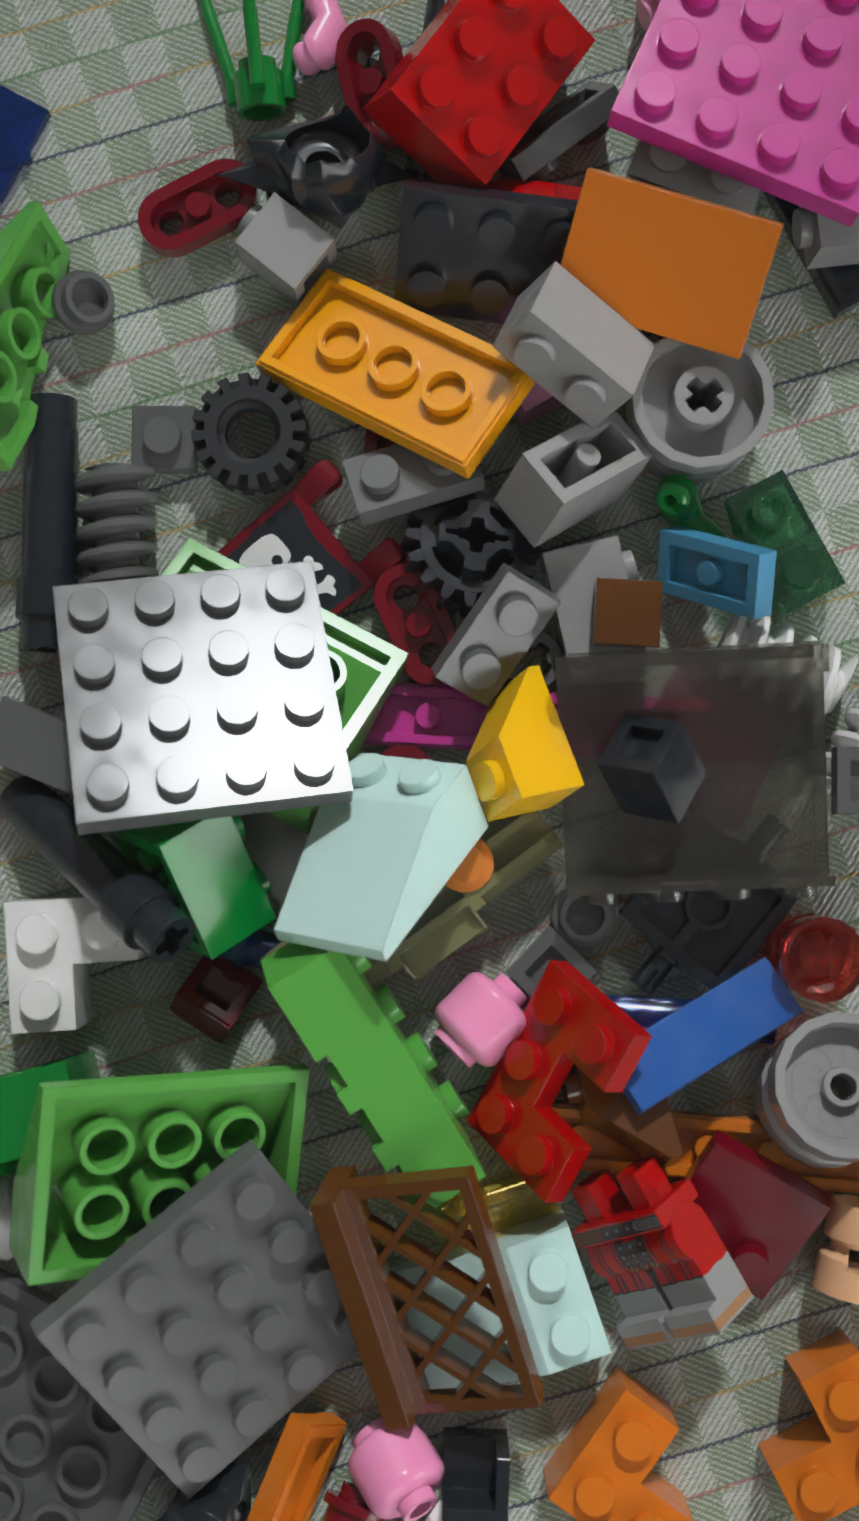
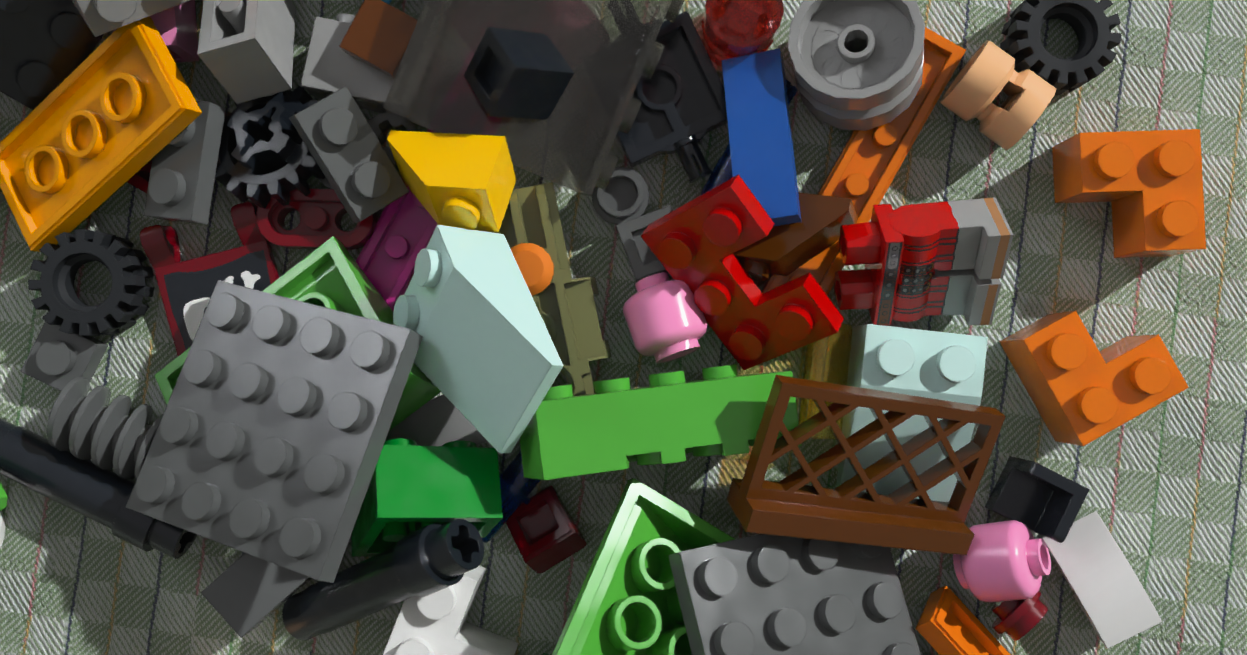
camera: 65 degrees left, 0 degrees up
(756, 1208) = (923, 163): dark red plate -> none

